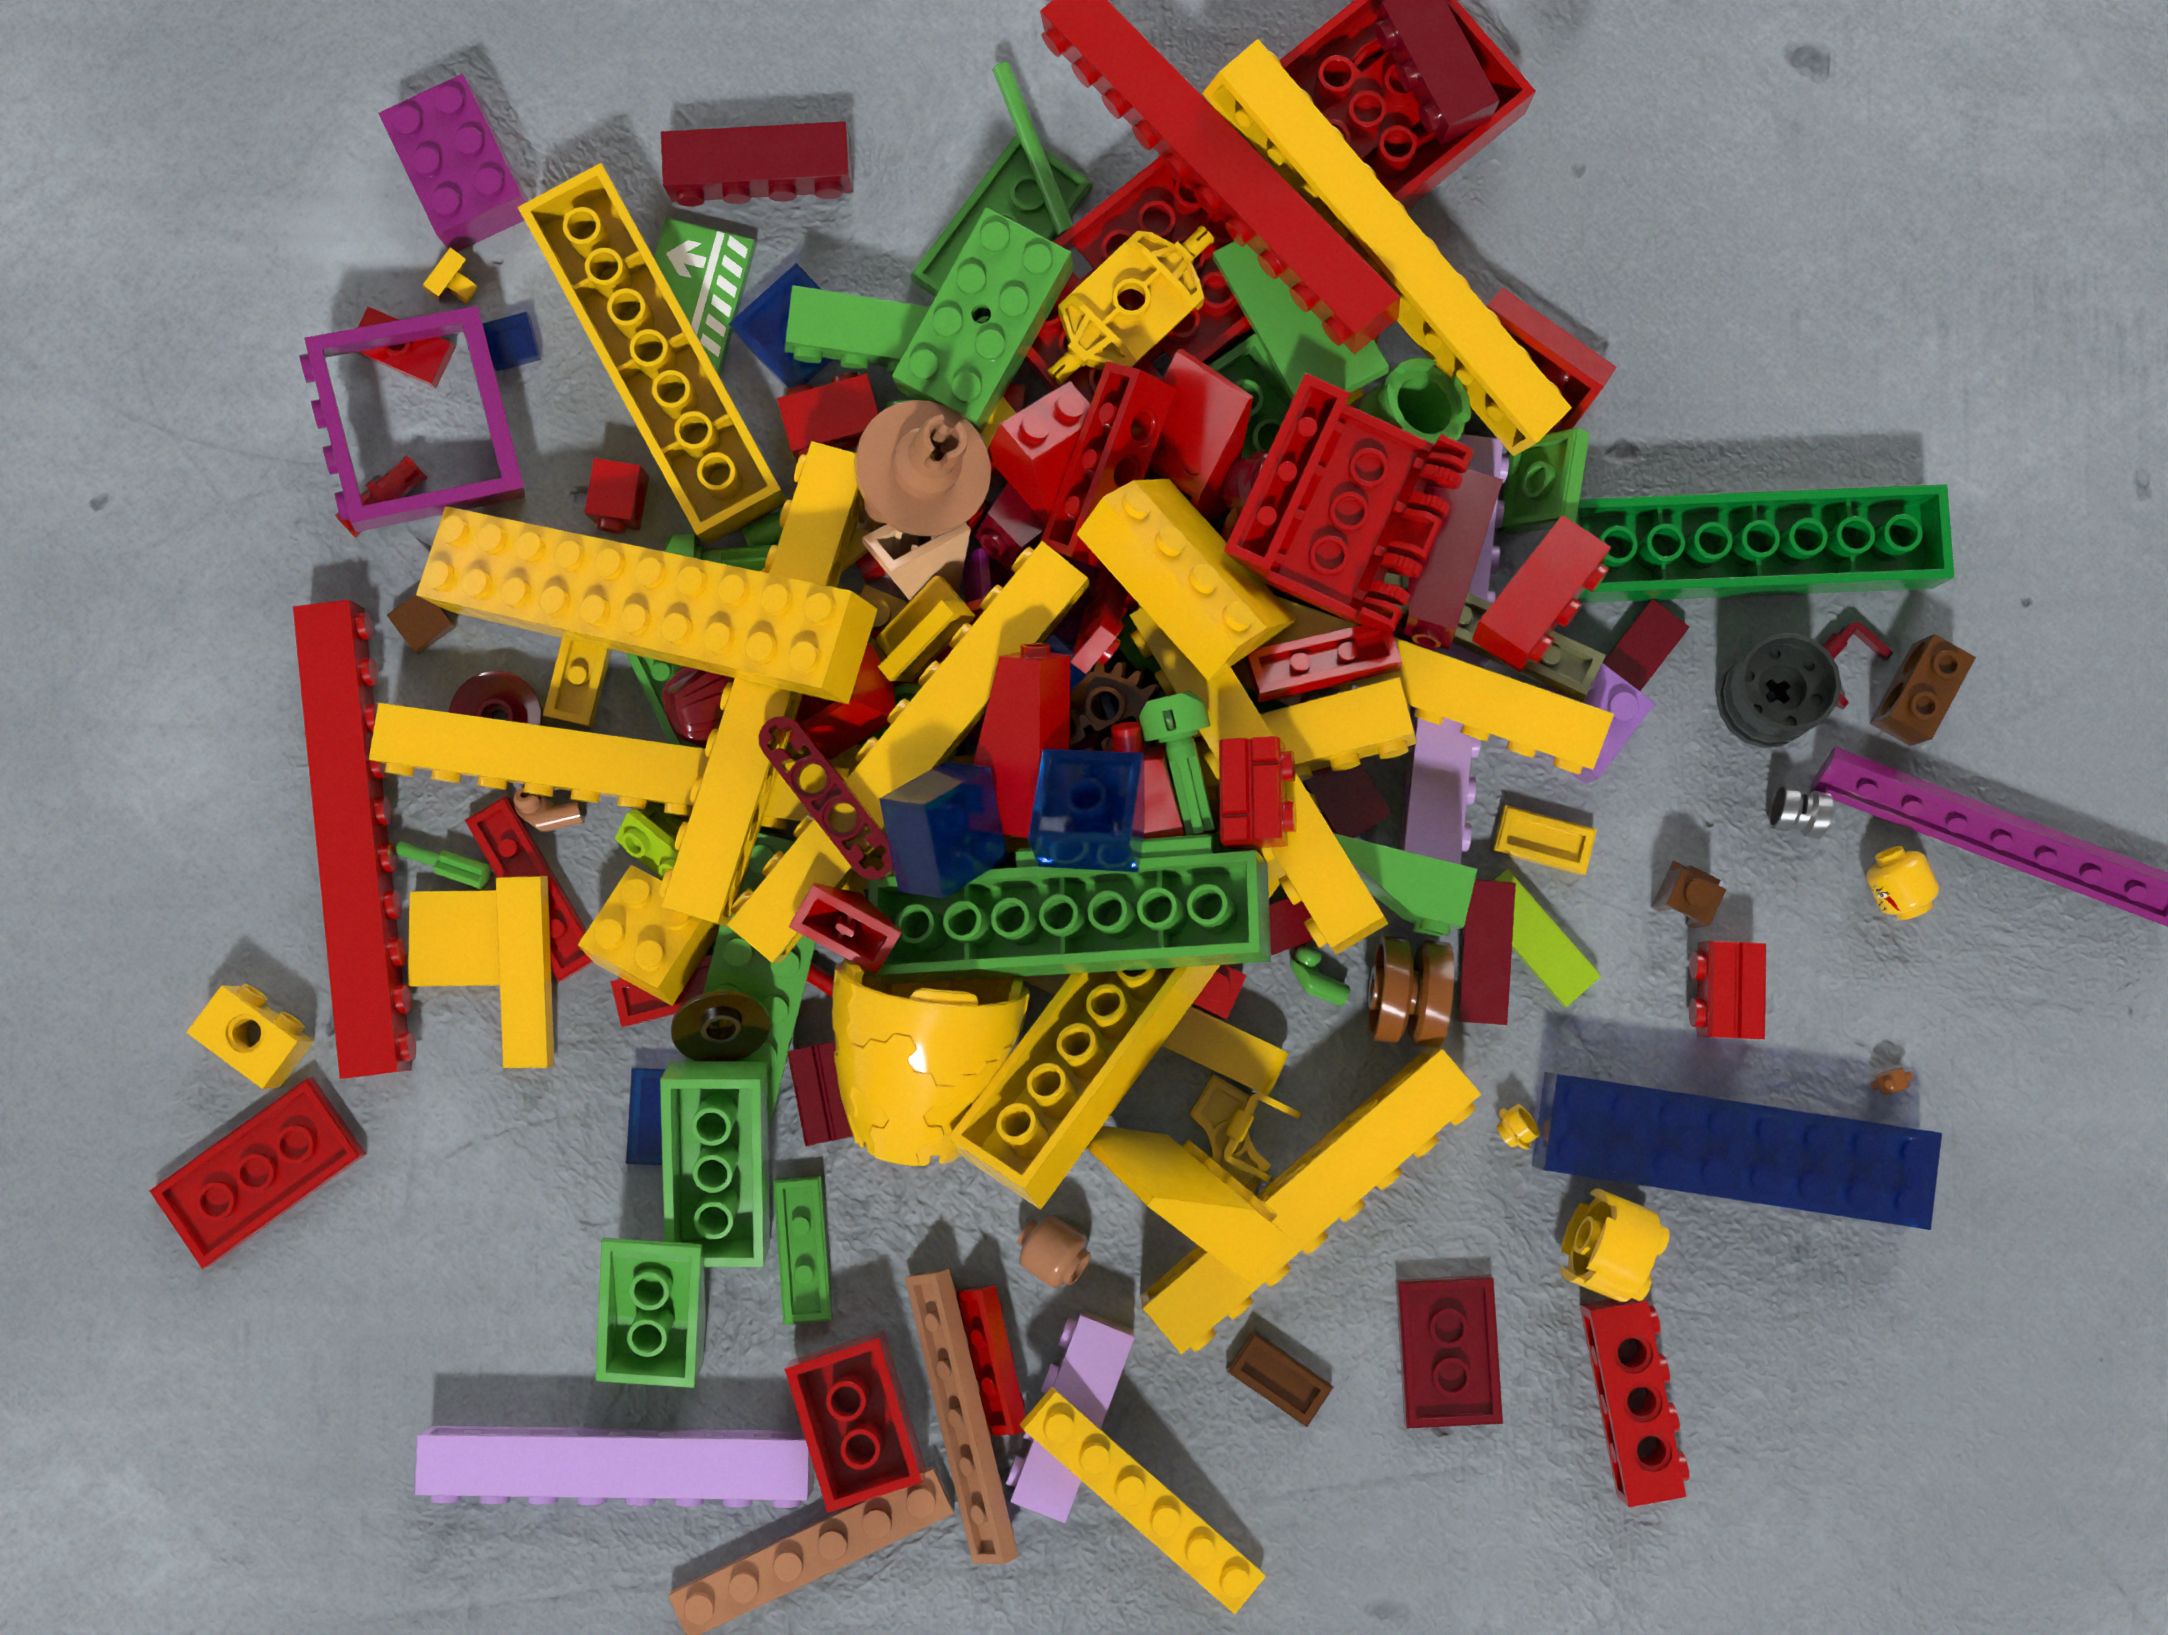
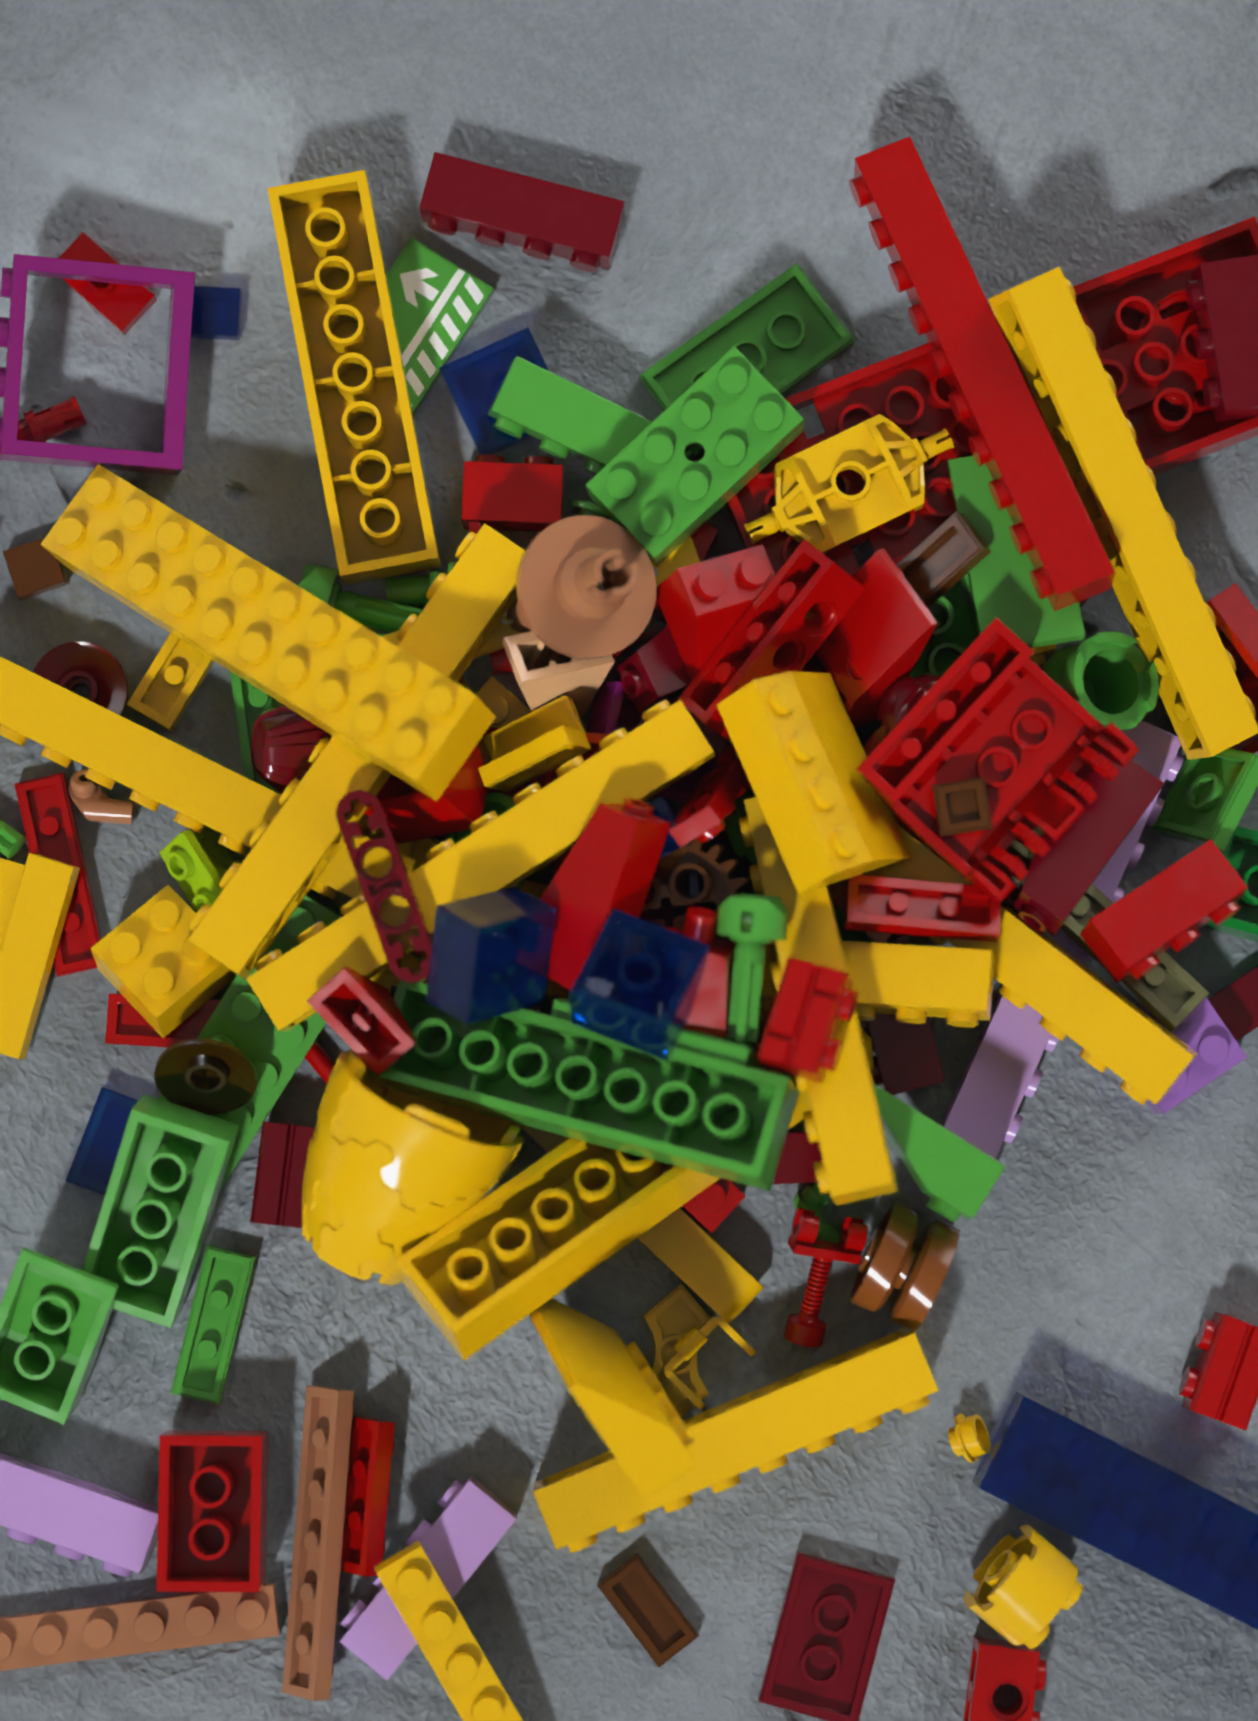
camera: 15 degrees right, 0 degrees up
(448, 277) = (172, 229): yellow tile -> none
(455, 163) = (218, 116): magenta brick -> none
(616, 495) = (271, 506): red brick -> none
(1032, 147) = (805, 288): bright green bar -> none
(1053, 1251) = (463, 1408): nougat head -> none
(1239, 339) = (943, 558): none -> reddish brown tile
(1329, 557) = (961, 807): none -> reddish brown tile
(1338, 1075) = (806, 1327): none -> red bar
(1487, 953) = (996, 1251): dark red tile -> none
(1544, 840) = (1093, 1157): yellow tile -> none
(1547, 949) = (1050, 1253): lime tile -> none
(1690, 893) = (1220, 1260): reddish brown window -> none

